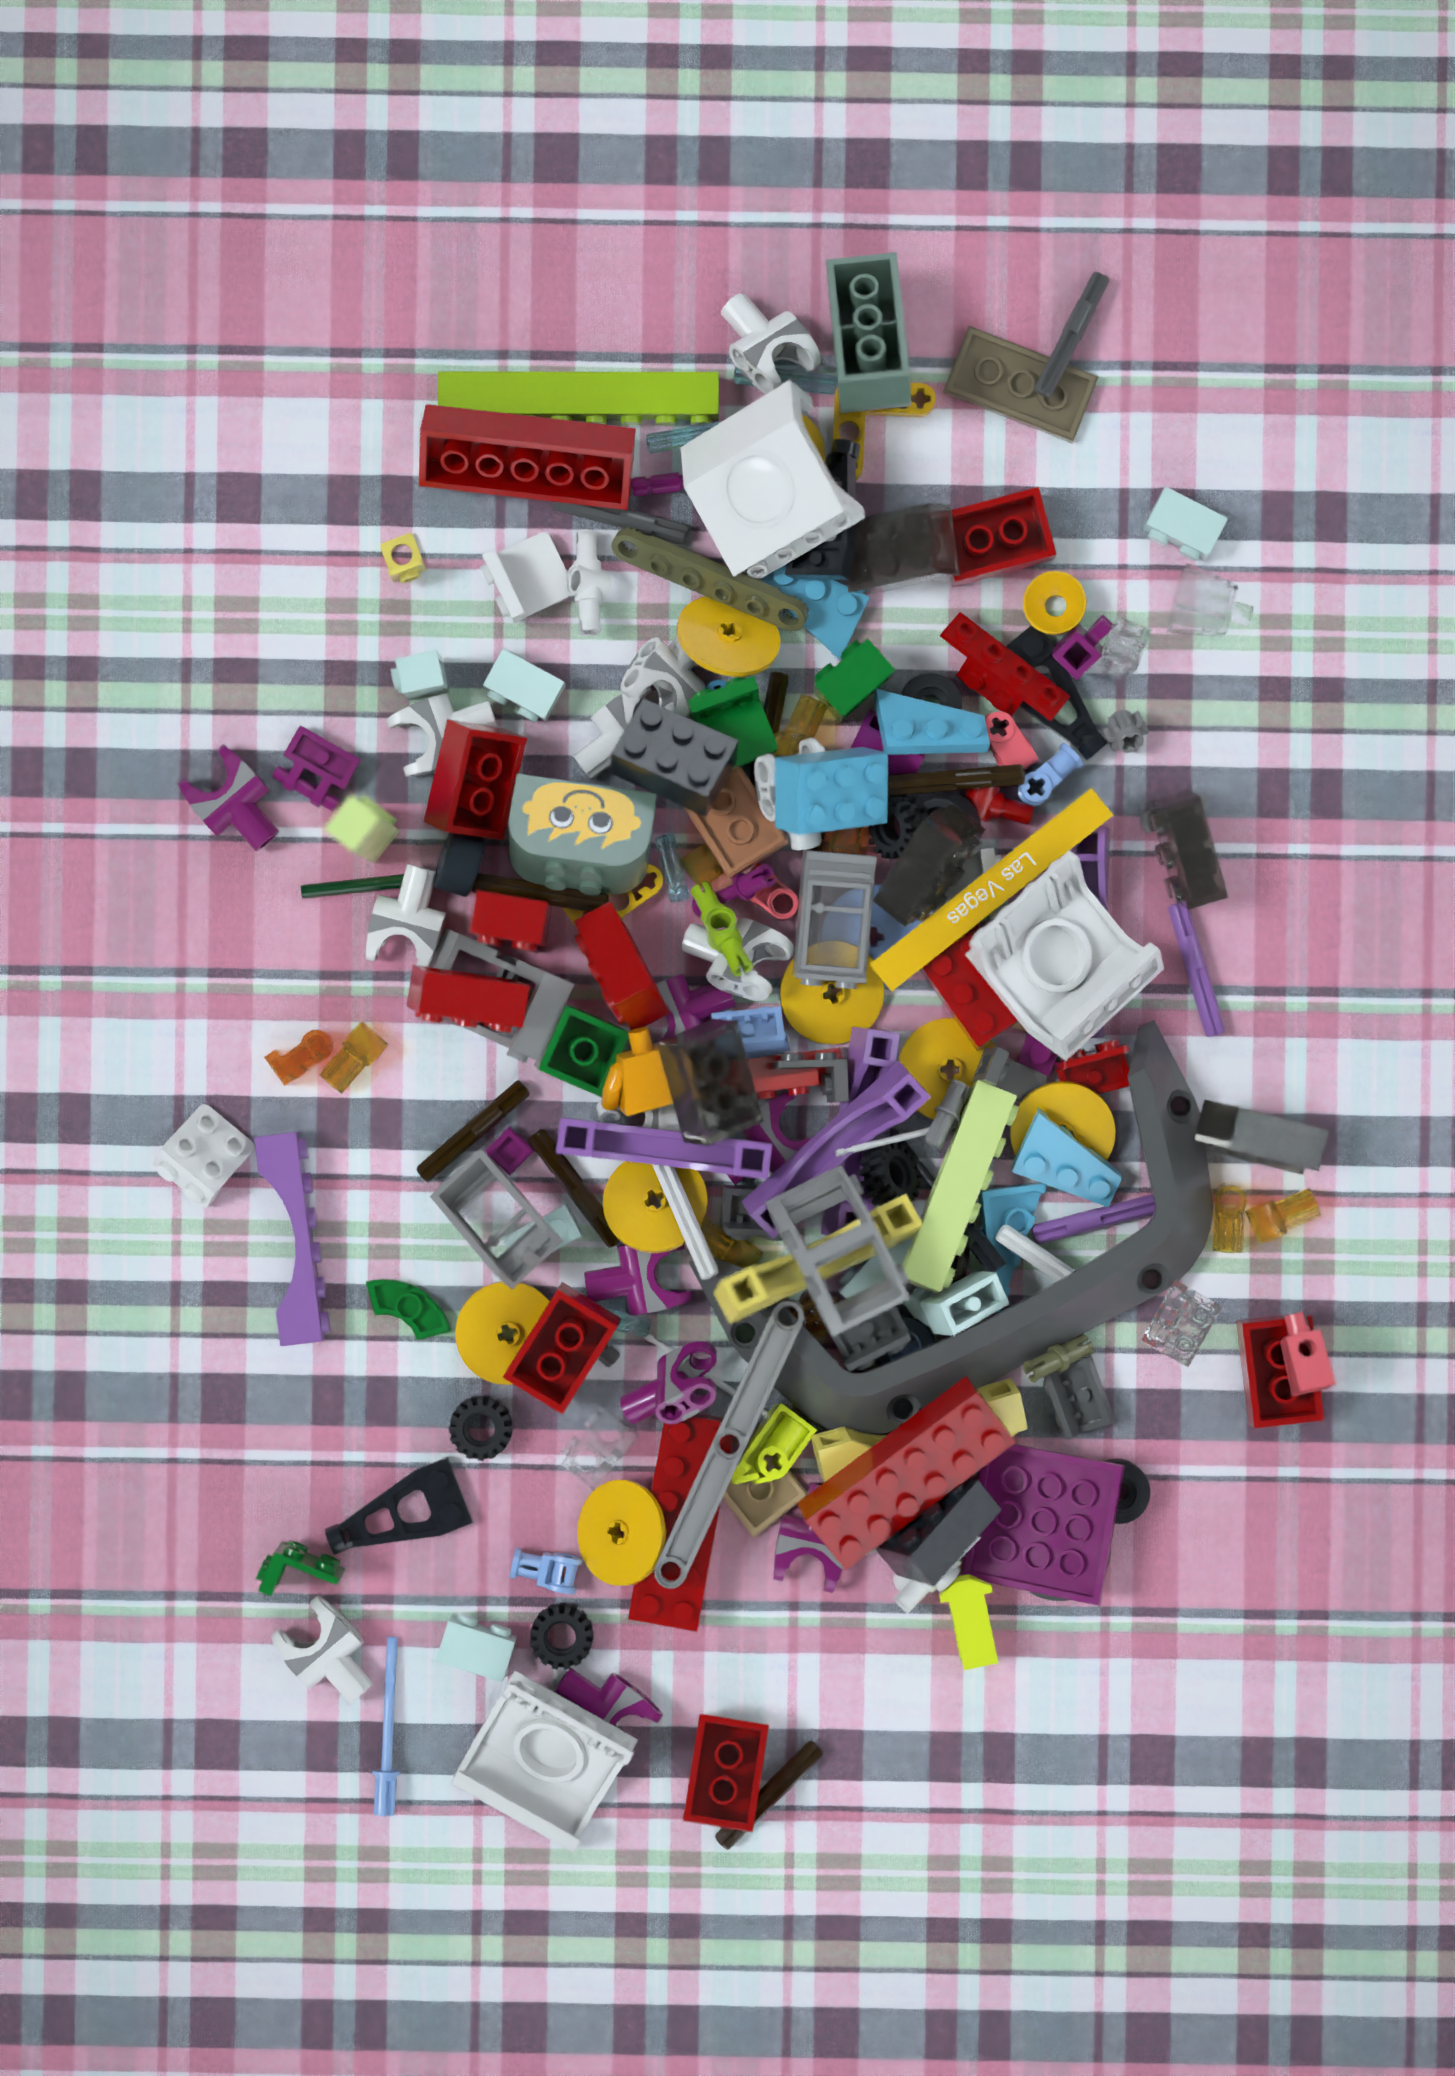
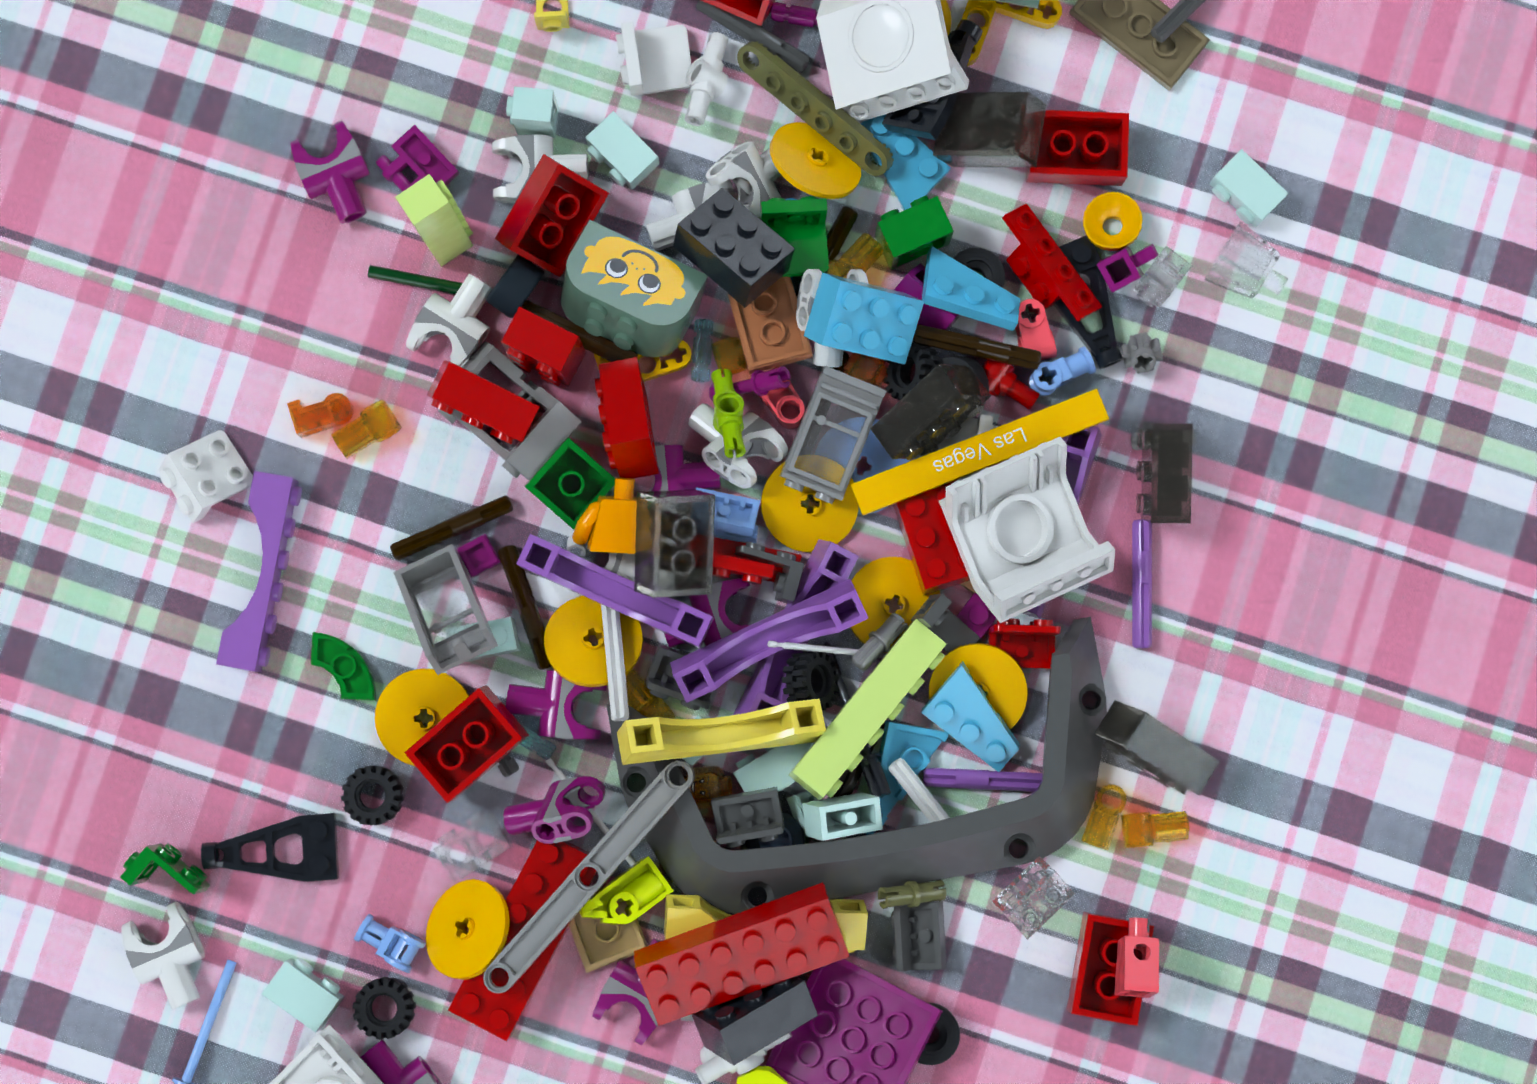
camera: 20 degrees right, 5 degrees down
(812, 1199) = (731, 677): light grey window -> none

